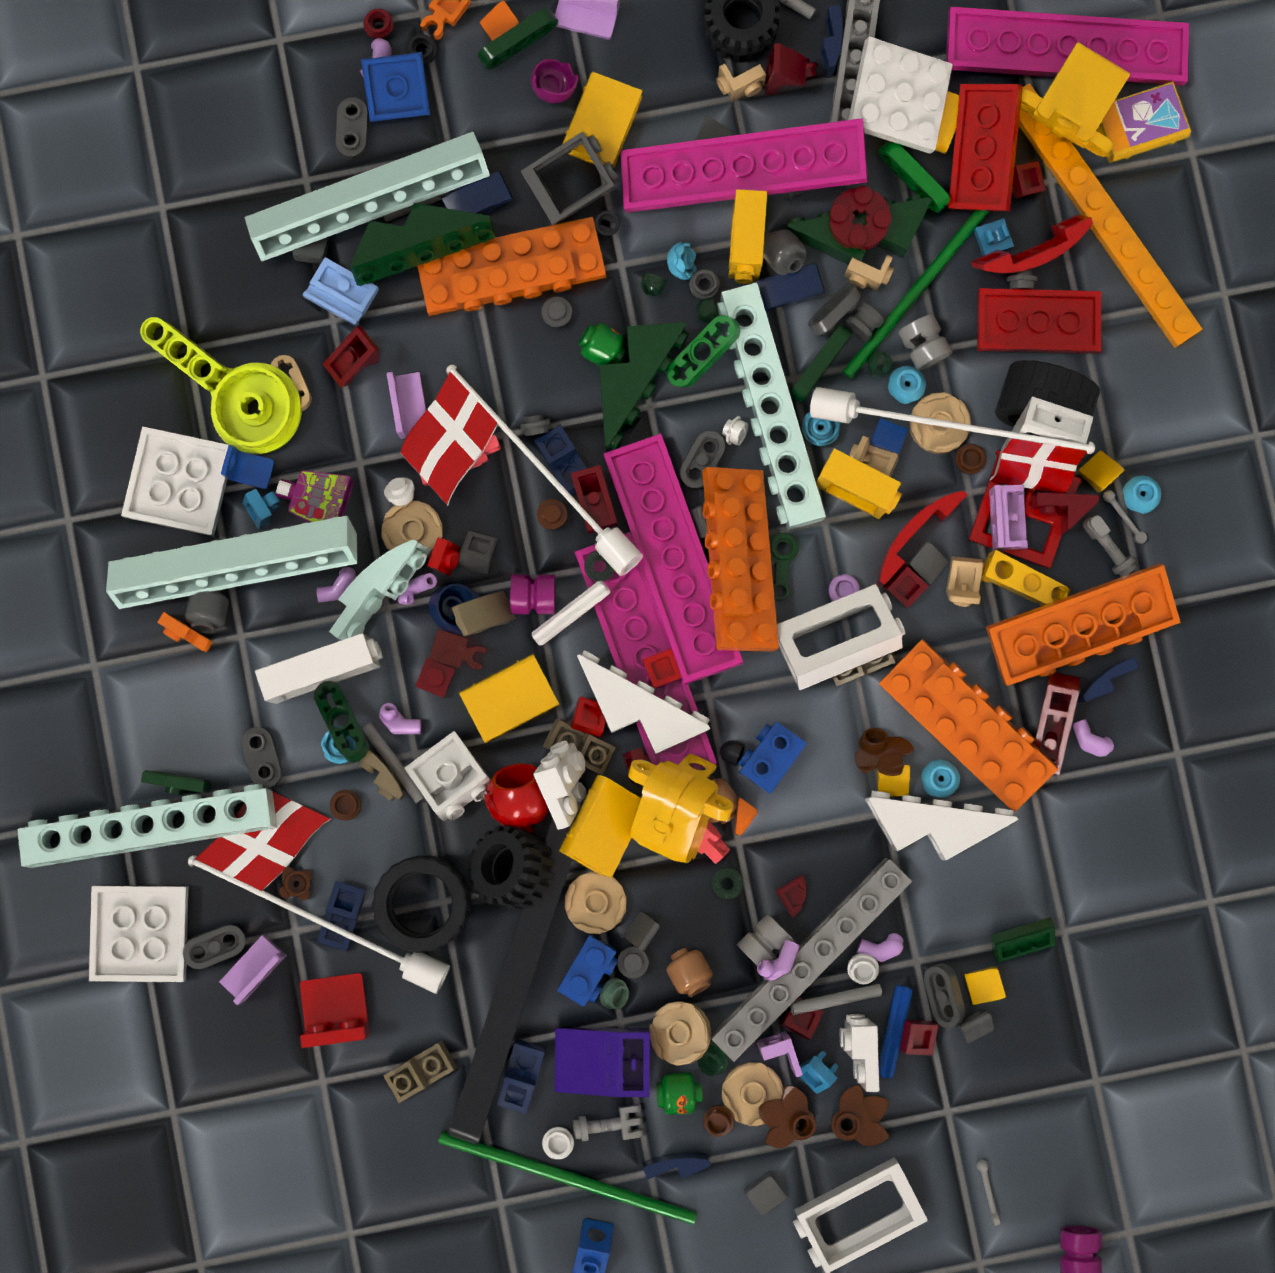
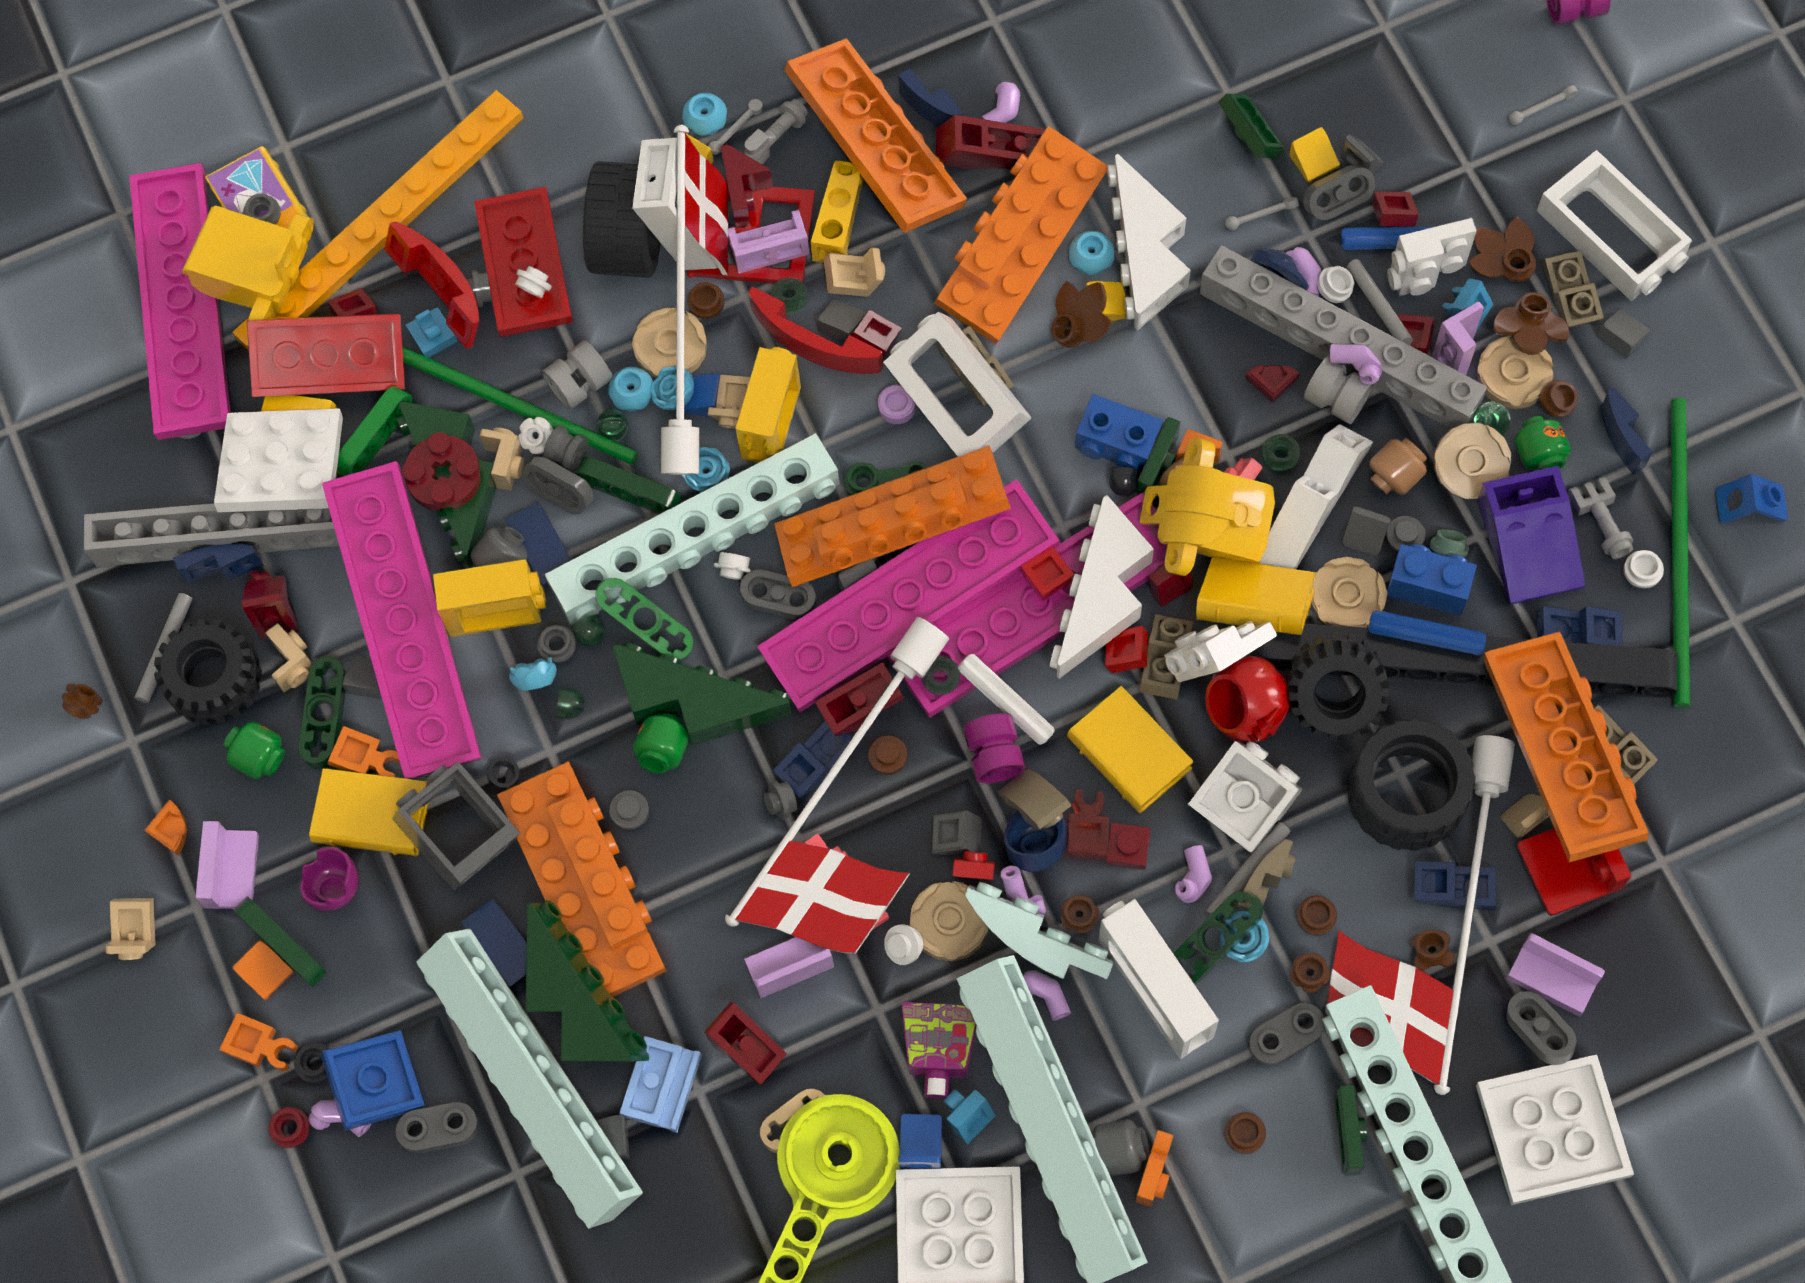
camera: 95 degrees left, 15 degrees down
(196, 706) = (1245, 1133): none -> reddish brown plate
(295, 784) = (1317, 965): none -> reddish brown plate
(383, 627) = (1086, 906): none -> reddish brown plate
(383, 988) = (1525, 815): none -> tan slope
(411, 1028) = (1566, 747): none -> orange plate
(537, 950) = (1427, 632): none -> blue axle
(650, 120) = (359, 753): none -> orange plate
(668, 101) = (315, 684): none -> dark green beam
(670, 43) = (254, 750): none -> green head
(679, 899) = (1314, 497): none -> white slope
(742, 785) = (1161, 455): none -> dark green plate
(812, 1162) = (1571, 289): none -> dark tan slope
(884, 926) = (1280, 264): none -> dark blue hat
(886, 307) = (526, 437): none -> white plate
(899, 406) = (664, 388): none -> medium azure plate
(946, 953) = (1233, 222): none -> light grey hinge
(954, 534) = (795, 303): none -> clear green plate
(1012, 321) = (533, 281): none -> white plate
(1132, 113) = (263, 202): none -> dark grey plate

